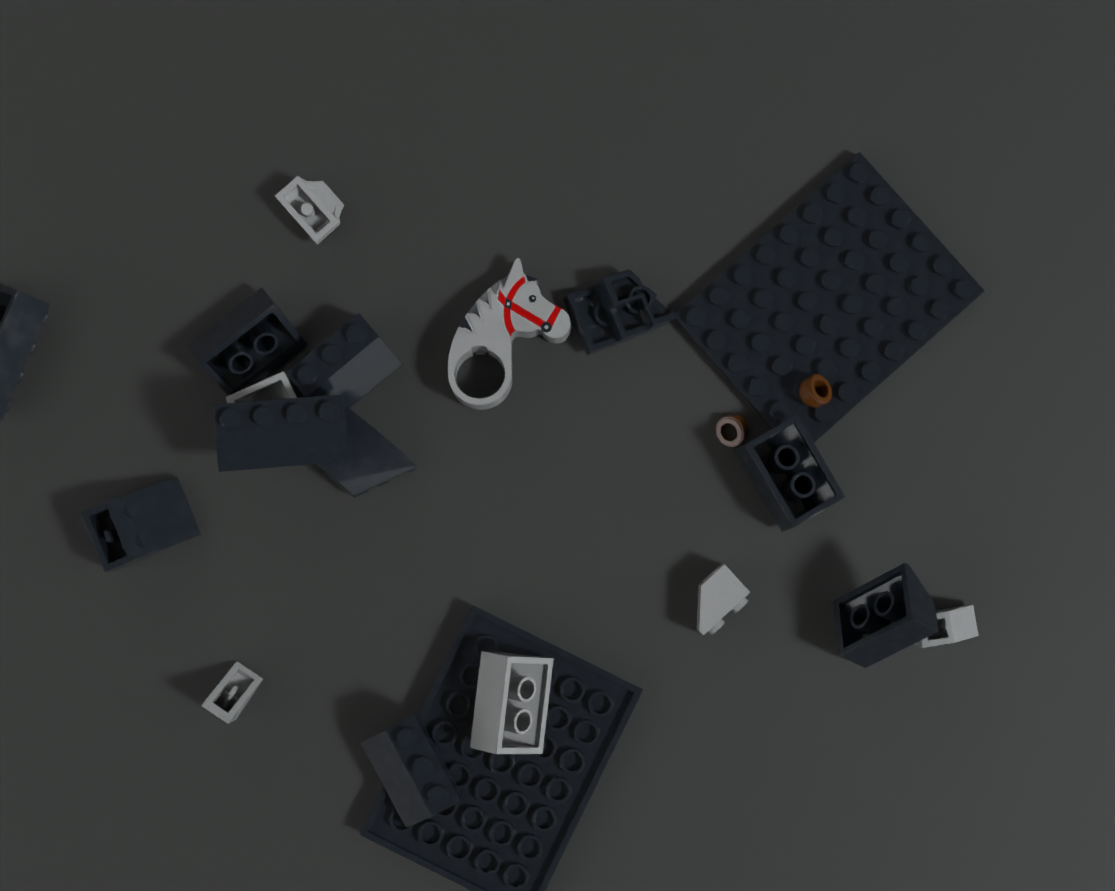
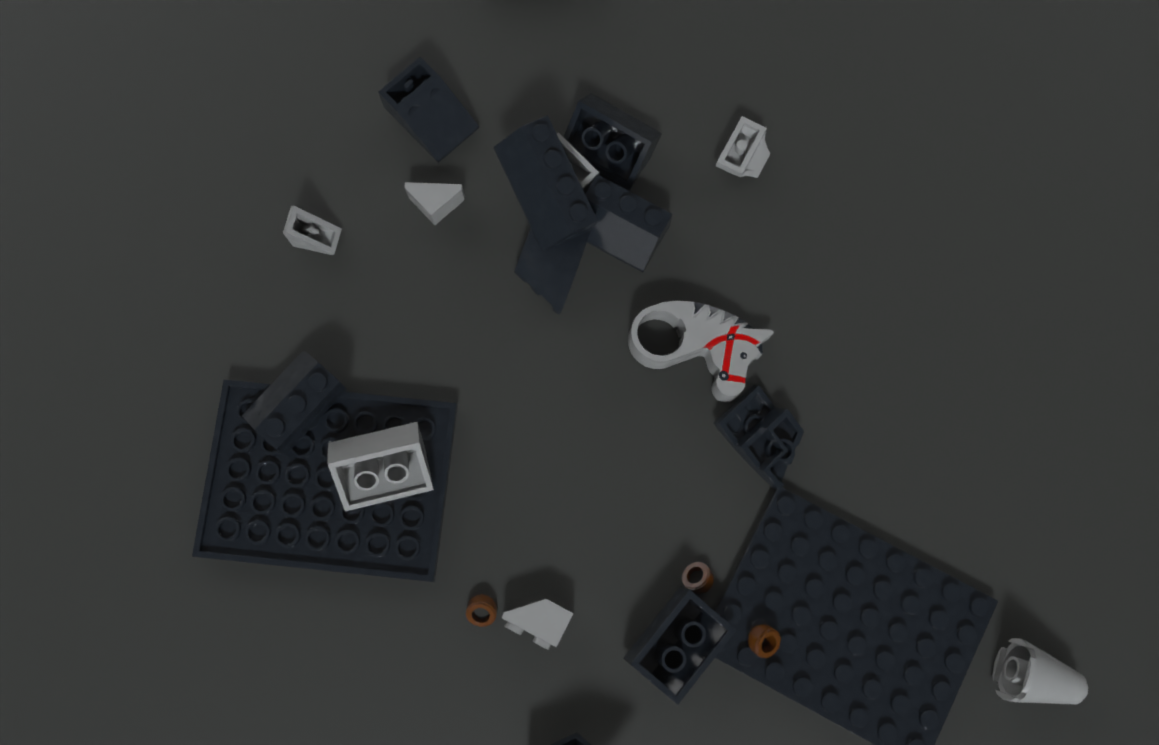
camera: 70 degrees right, 10 degrees down
(244, 552) = (435, 199): none -> light grey slope
(679, 647) = (485, 602): none -> reddish brown piece
(941, 149) = (1034, 676): none -> light grey cone

